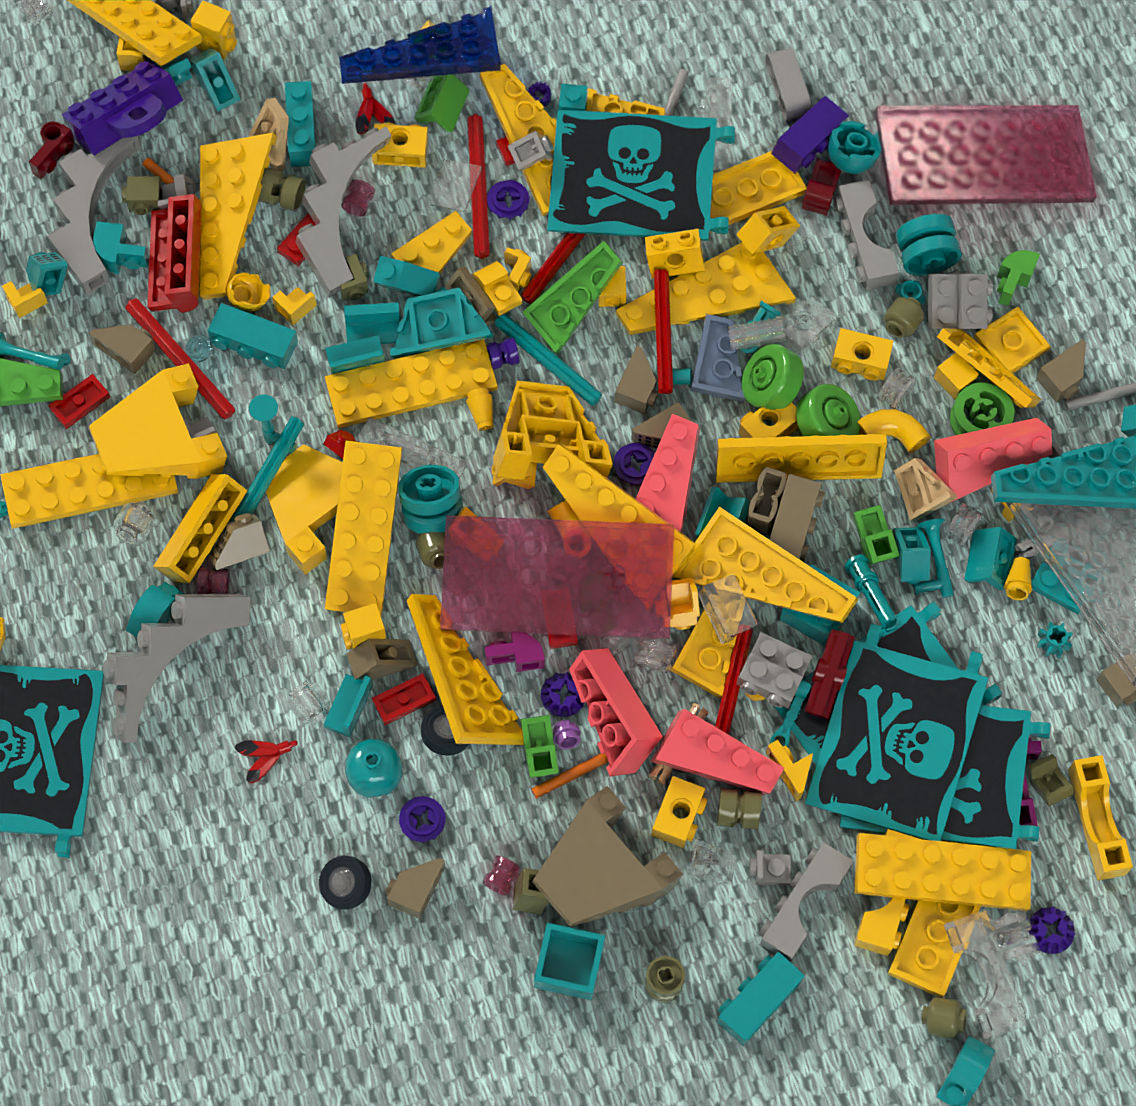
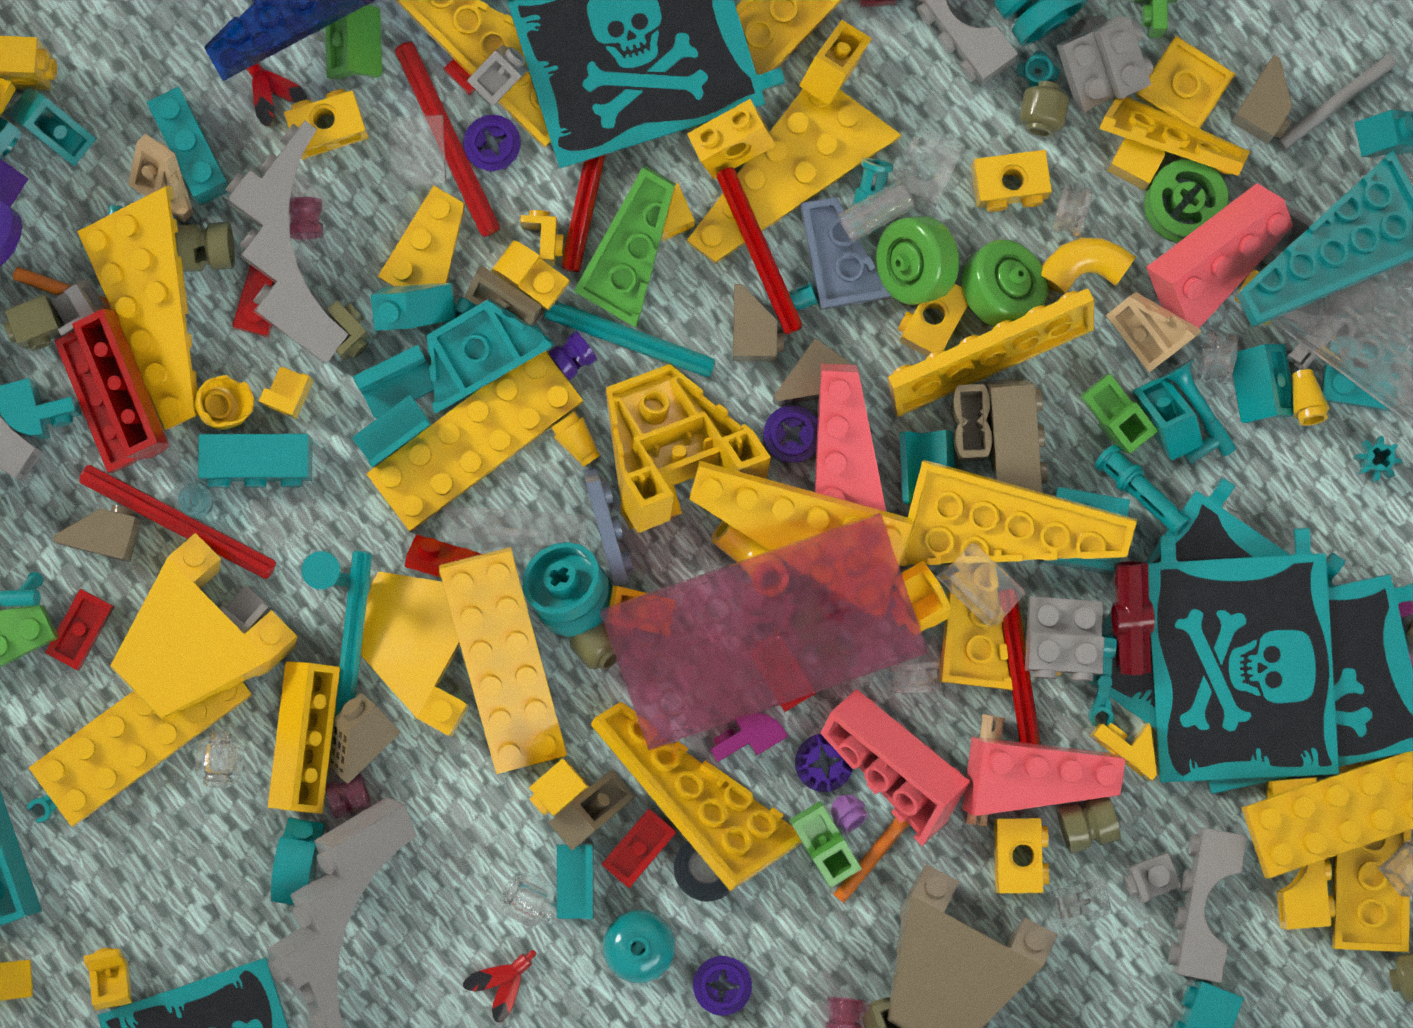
camera: 20 degrees left, 15 degrees up
(478, 470) = (608, 526): none -> sand blue wing

